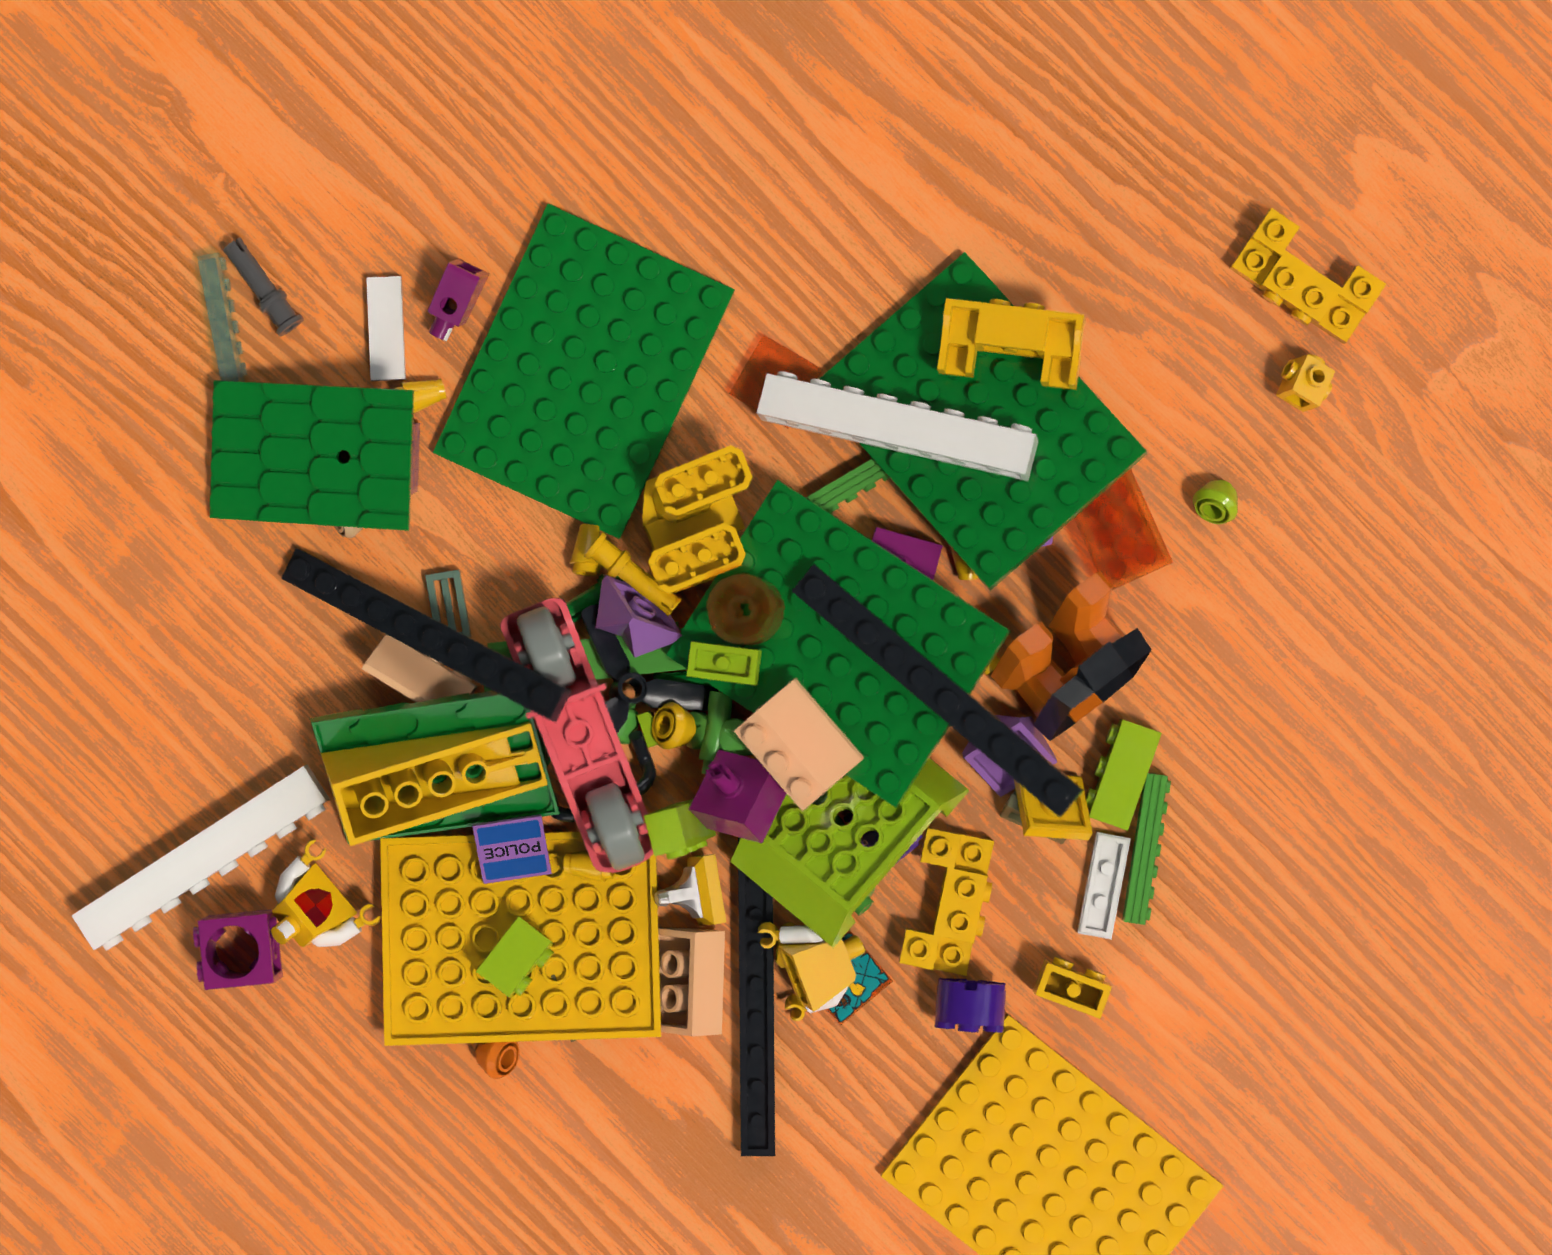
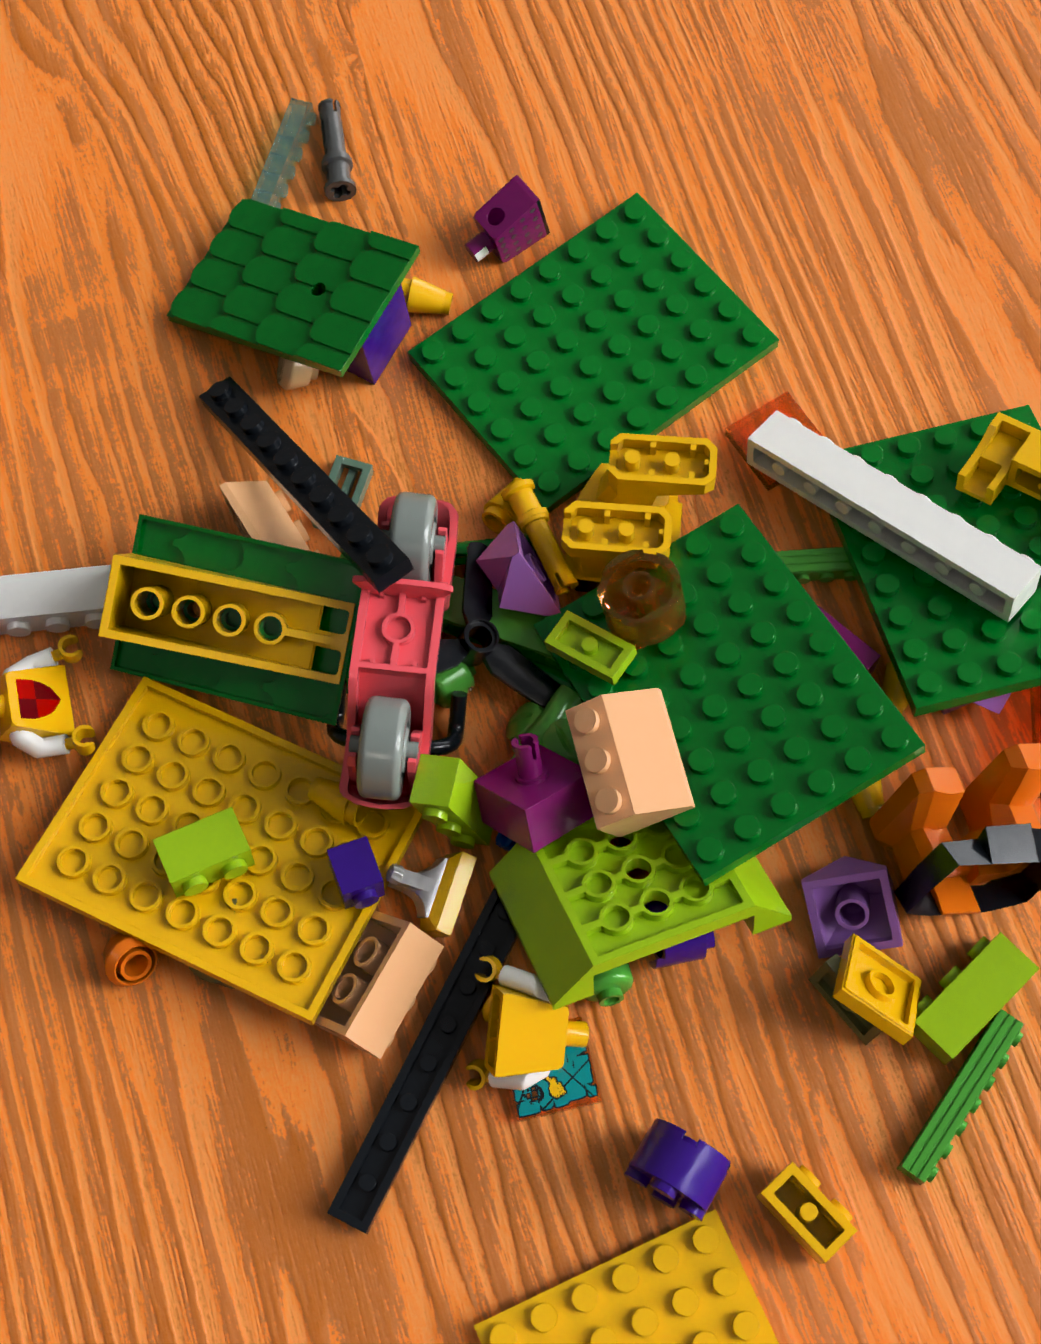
camera: 30 degrees right, 20 degrees down
(386, 328) = (432, 225): white tile -> none
(512, 849) = (267, 742): piece -> none
(636, 916) = (356, 873): none -> dark purple brick
(645, 720) = (477, 701): lime tile -> none
(673, 726) = (503, 701): yellow cone -> none
(937, 691) = (820, 782): black plate -> none
(959, 903) = (728, 1039): yellow bracket -> none
(1103, 885) = (893, 1116): white tile -> none

